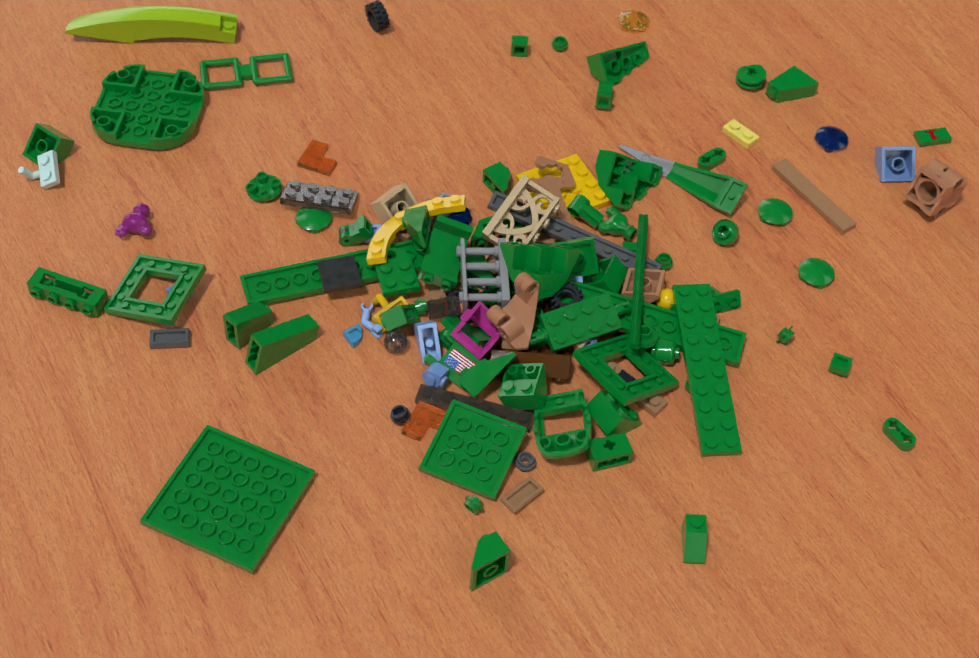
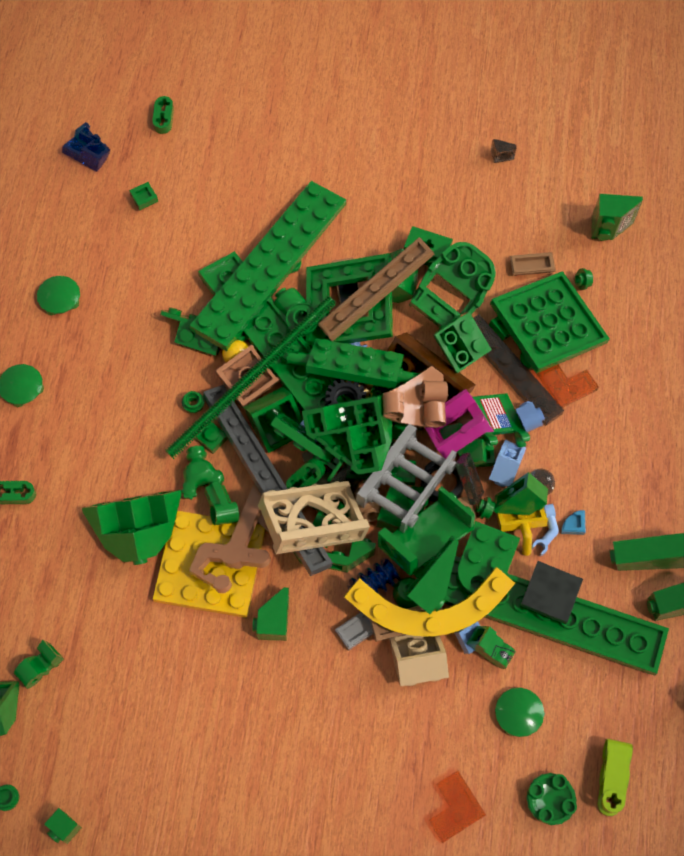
camera: 140 degrees left, 15 degrees up
(232, 213) = (614, 776): none -> lime piece
(319, 197) = (497, 733): clear smoke plate -> none
(400, 414) = (589, 403): black plate -> none
(480, 375) = (487, 378): green slope -> none
(525, 456) = (505, 285): dark grey plate -> none
(547, 239) = (302, 473): none -> green beam
(611, 373) = (376, 289): none -> medium nougat tile
(624, 574) = (502, 151): none -> clear smoke slope
(694, 538) = (420, 141): green slope -> none
(713, 189) = (57, 446): green plate -> none
(725, 232) = (101, 387): green plate -> none
(785, 334) = (161, 251): green plate -> none
(918, 375) = (87, 148): none -> clear blue slope

